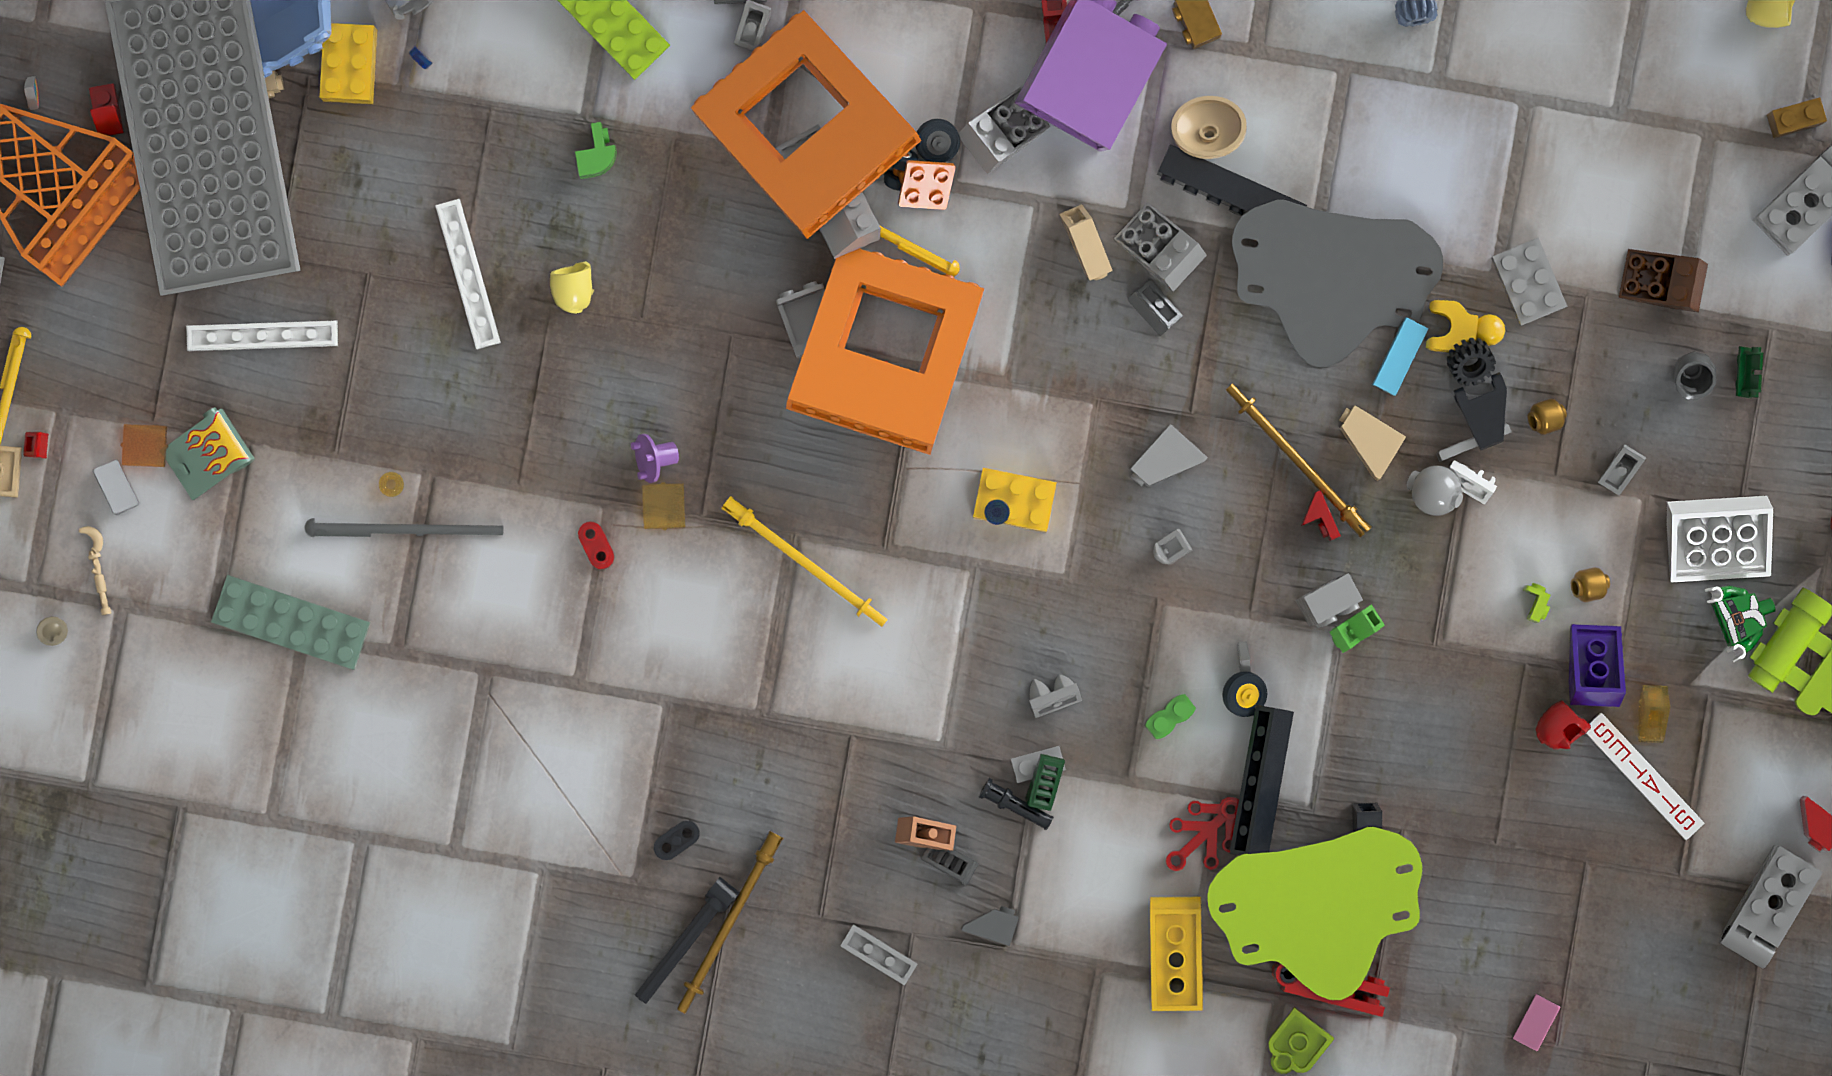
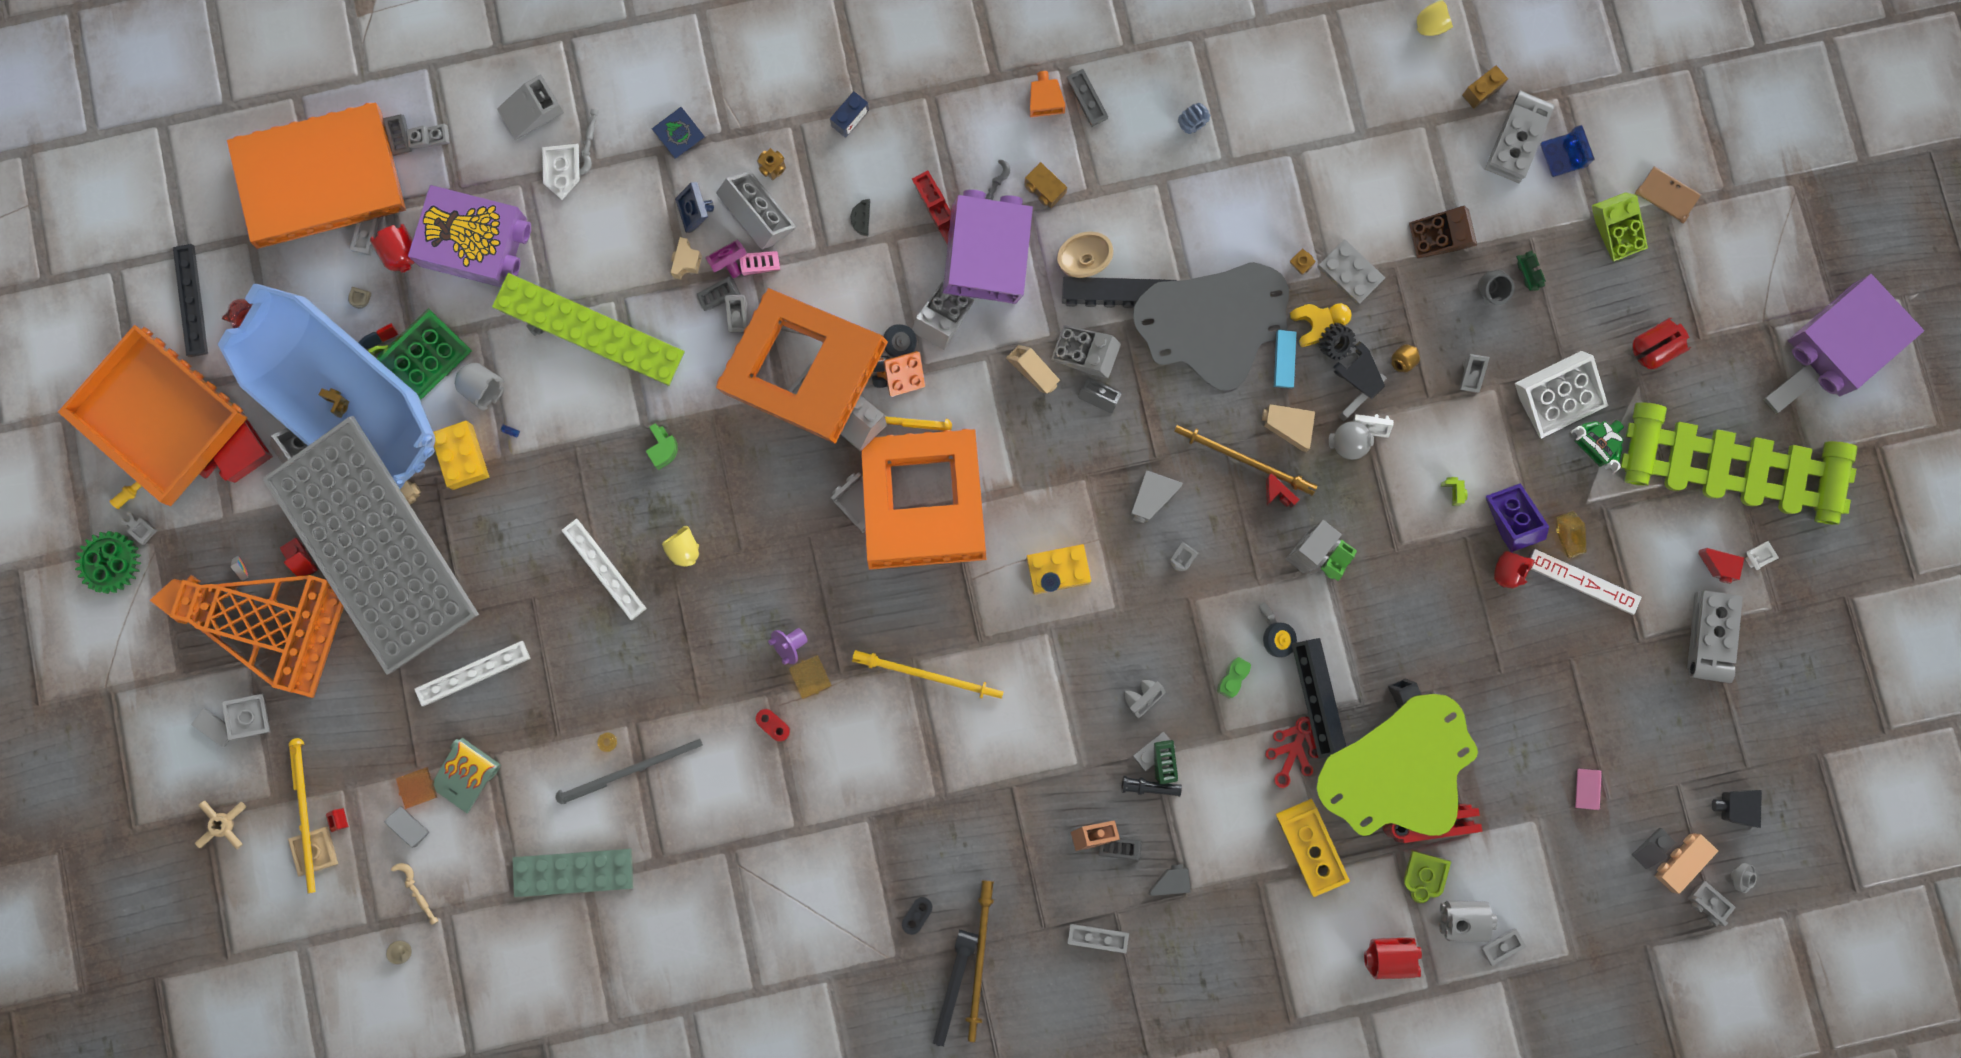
camera: 25 degrees left, 5 degrees down
(1472, 245) = (1302, 261): none -> pearl gold bracket
(1590, 584) = (1487, 462): pearl gold head -> none

